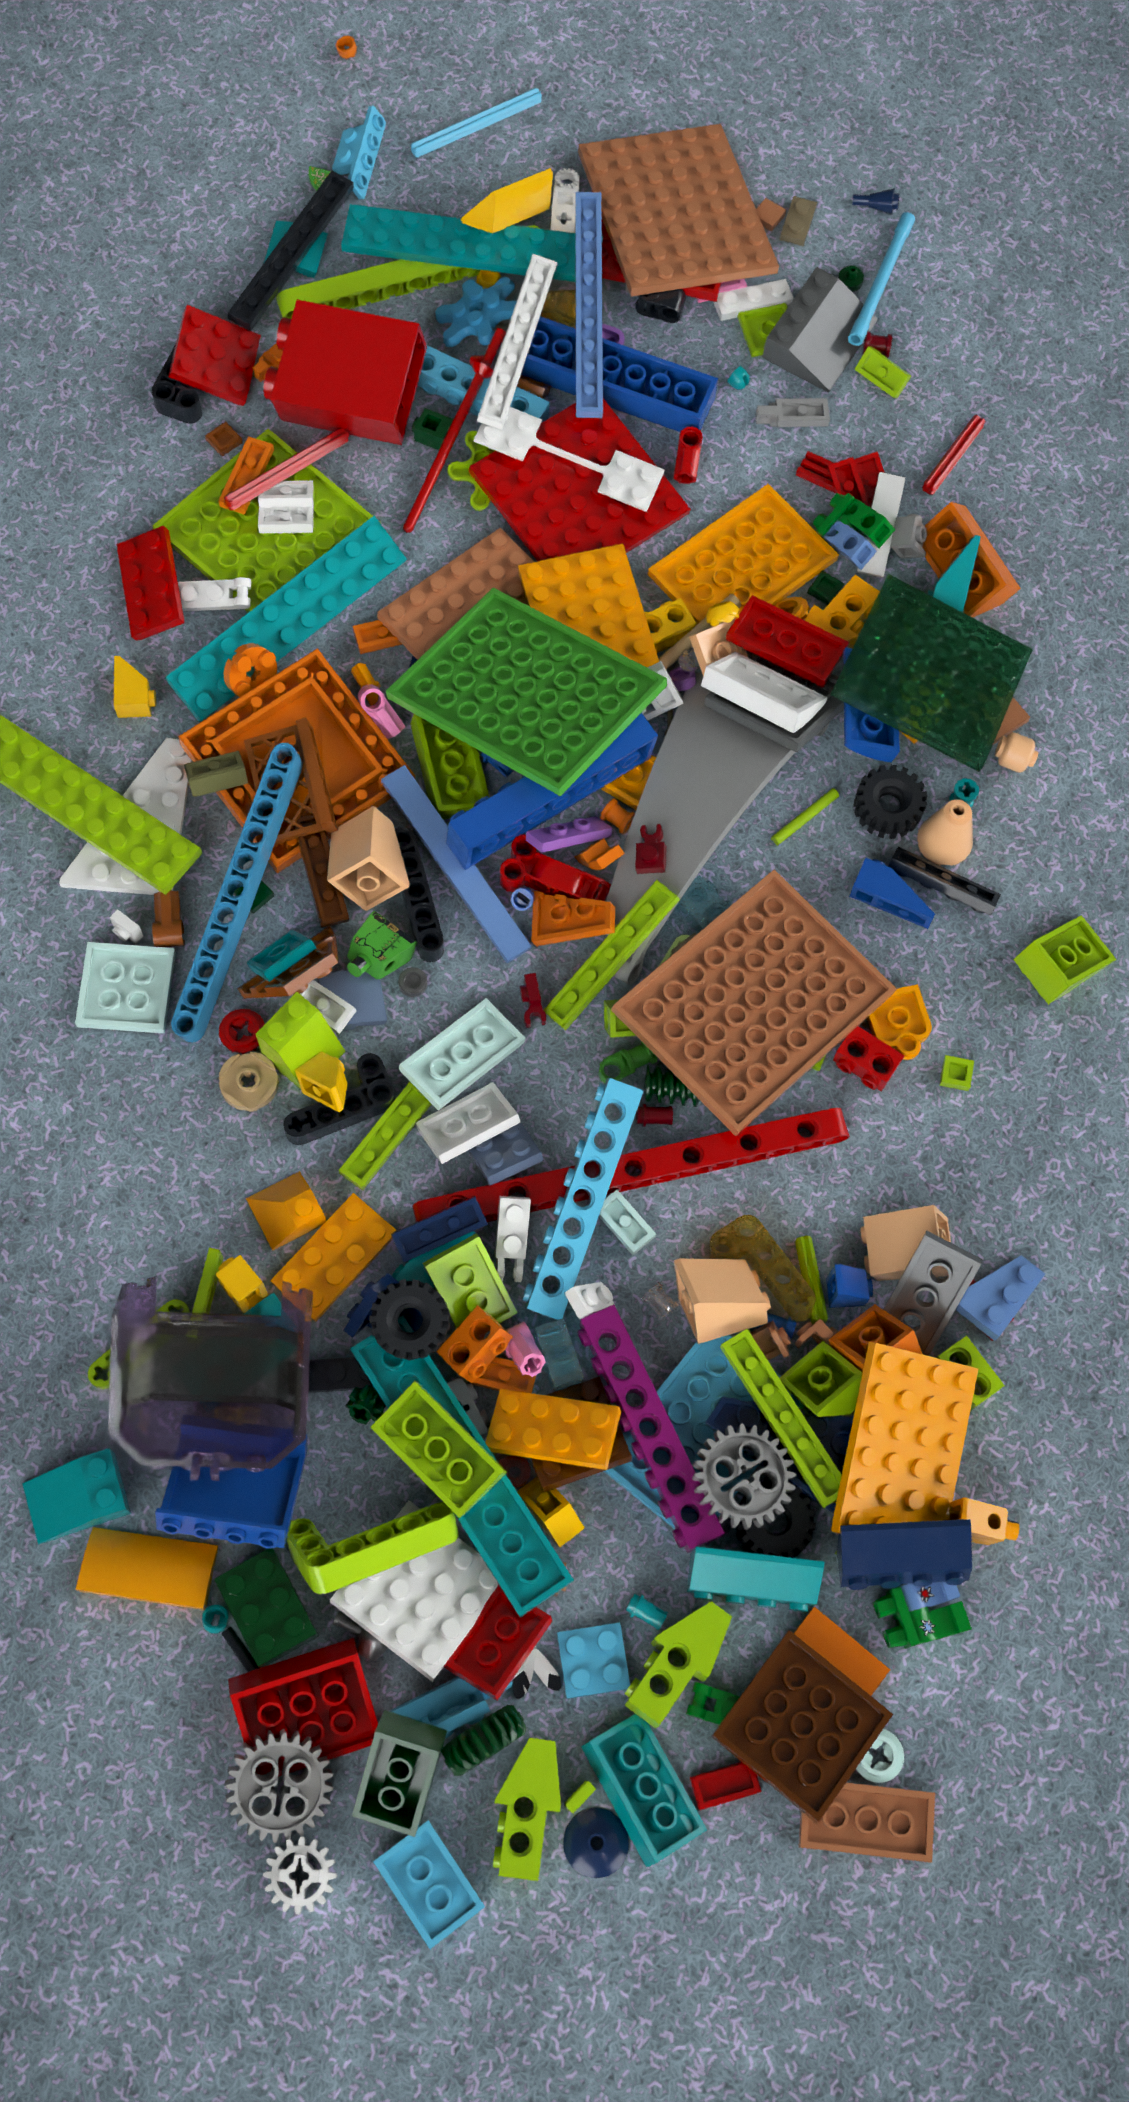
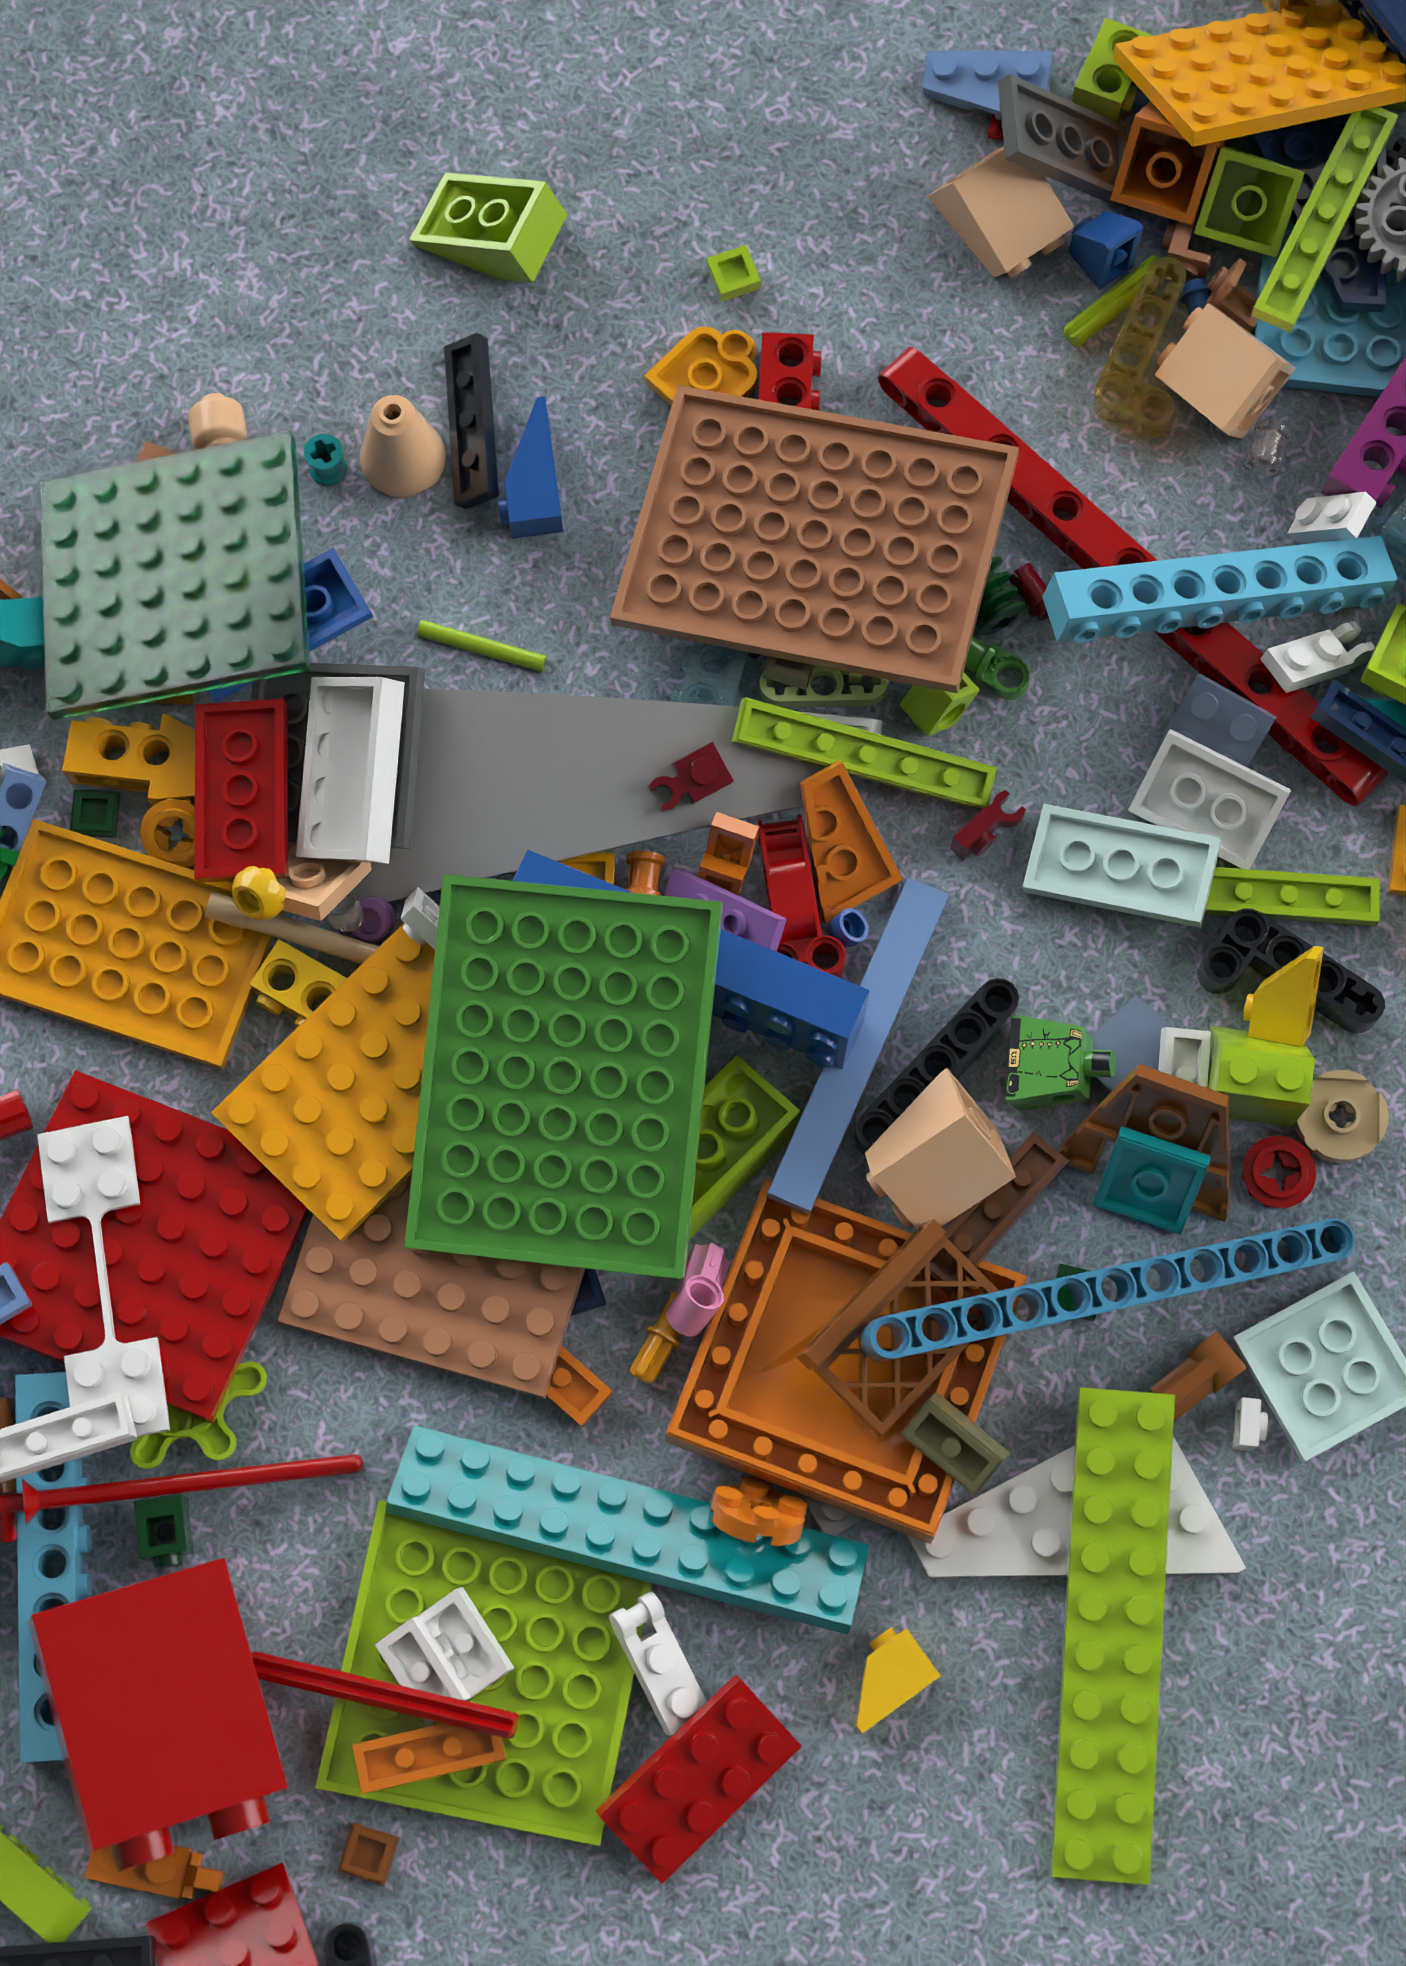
camera: 115 degrees left, 5 degrees up
(412, 982) = (1058, 999): flat silver tile -> none
(626, 1222) = (1201, 530): light aqua plate -> none
(895, 784) = (388, 516): black tyre -> none

